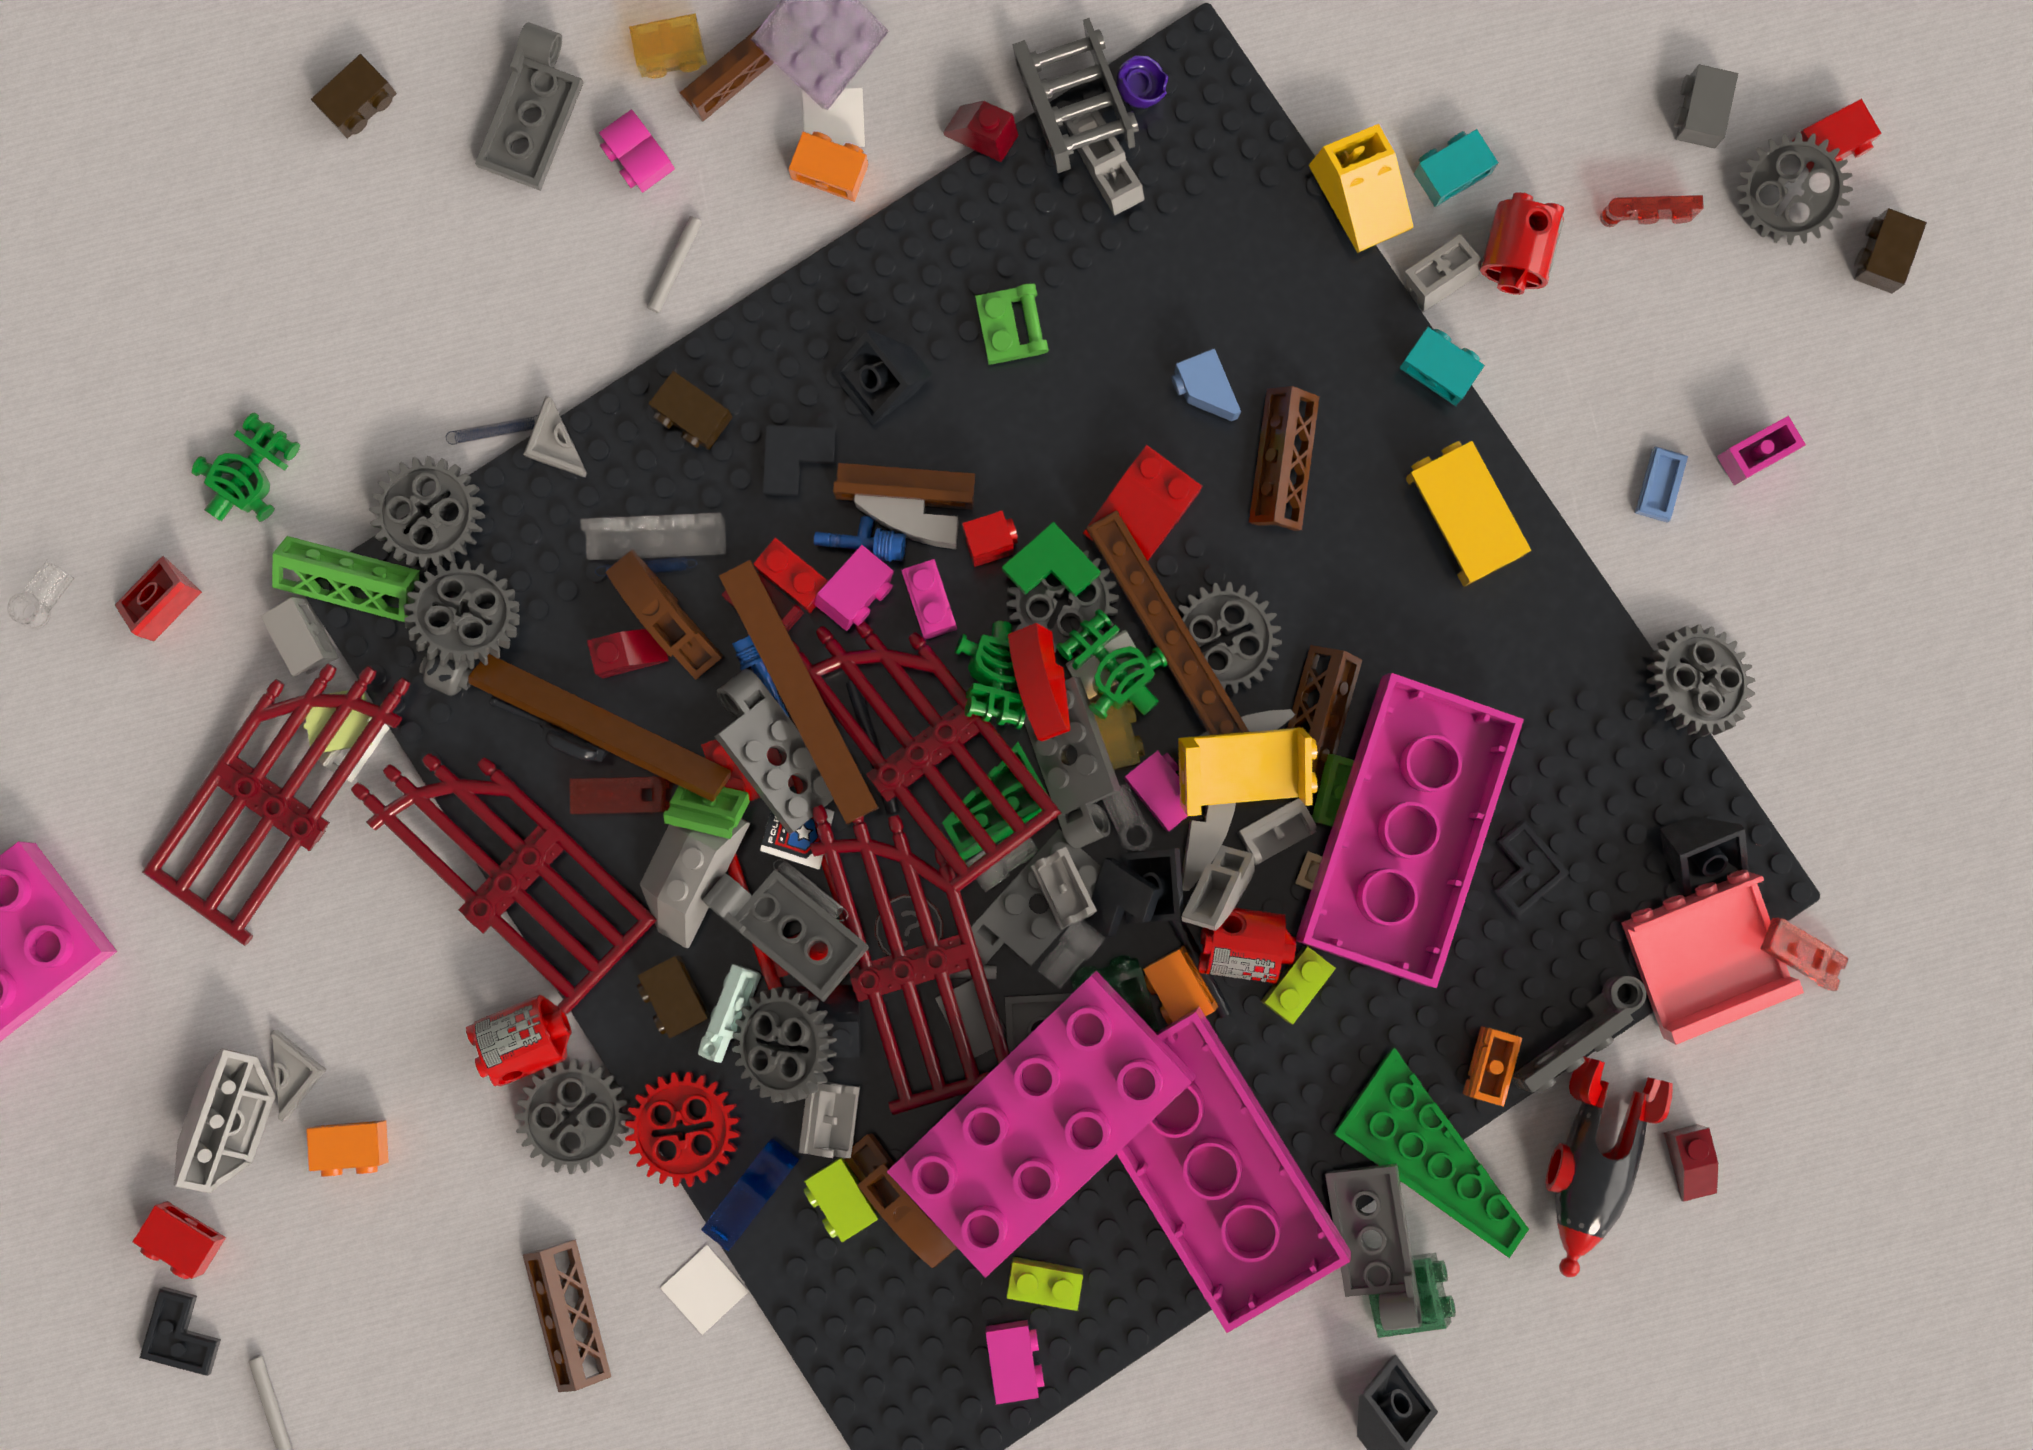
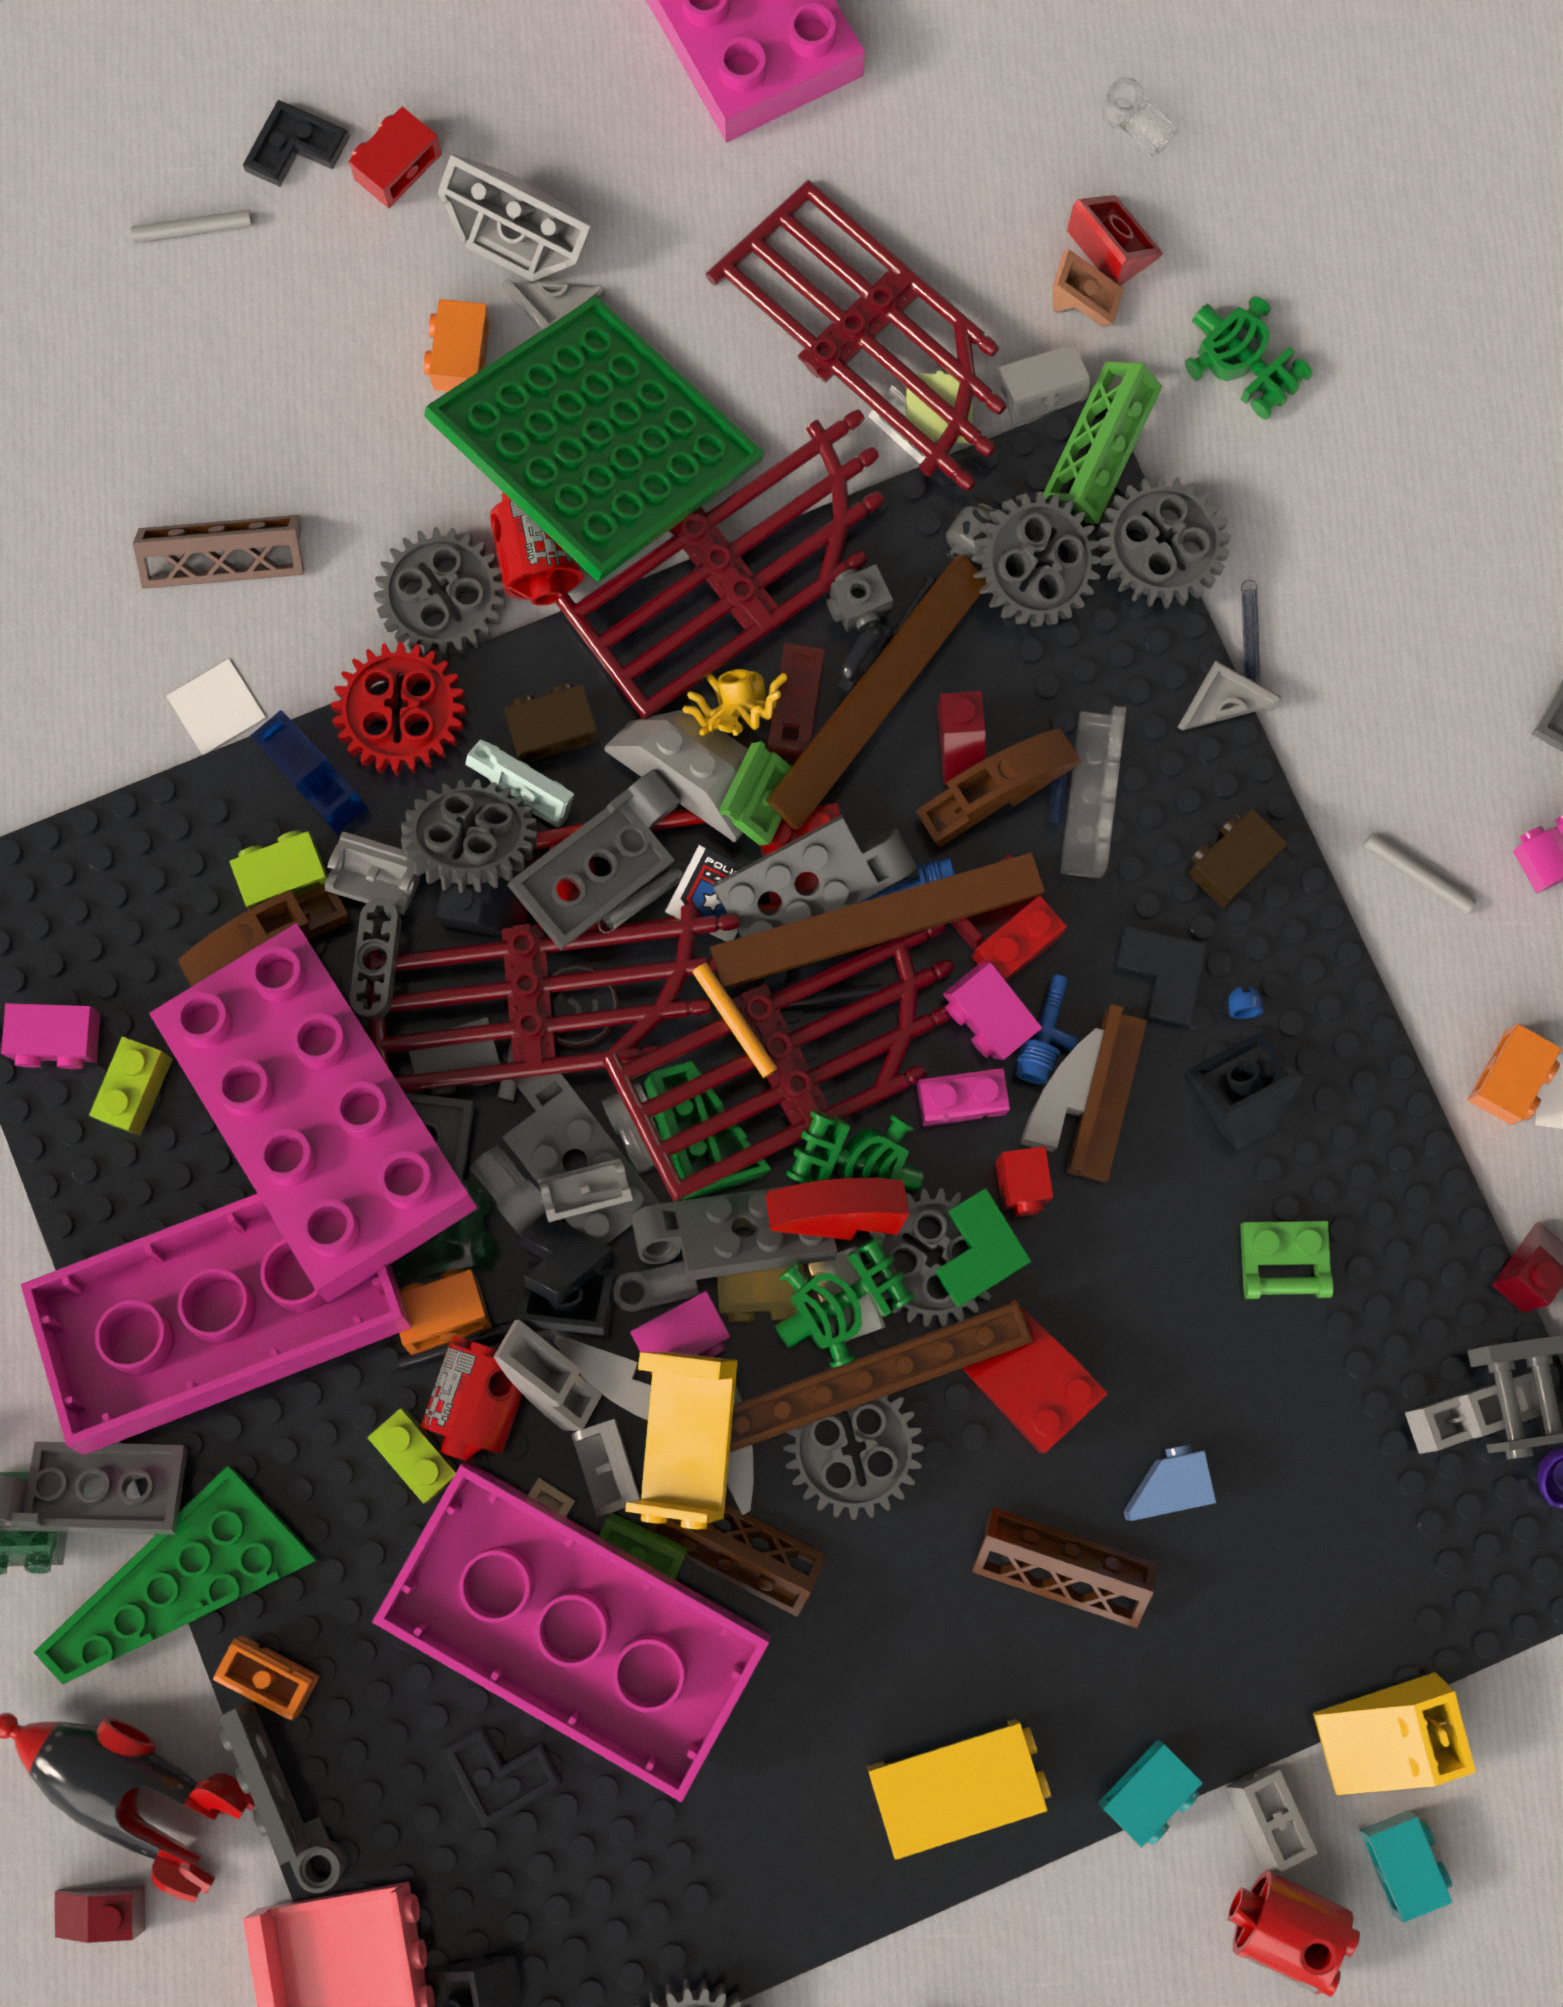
camera: 100 degrees right, 5 degrees down
(210, 613) = (1086, 289): none -> nougat slope
(414, 1008) = (594, 437): none -> green plate
(512, 749) = (859, 598): none -> dark grey brick
(623, 843) = (736, 693): none -> yellow animal
(810, 387) = (1245, 1004): none -> blue hinge
(879, 1113) = (389, 931): none -> dark grey beam
(903, 792) = (734, 1020): none -> light orange bar

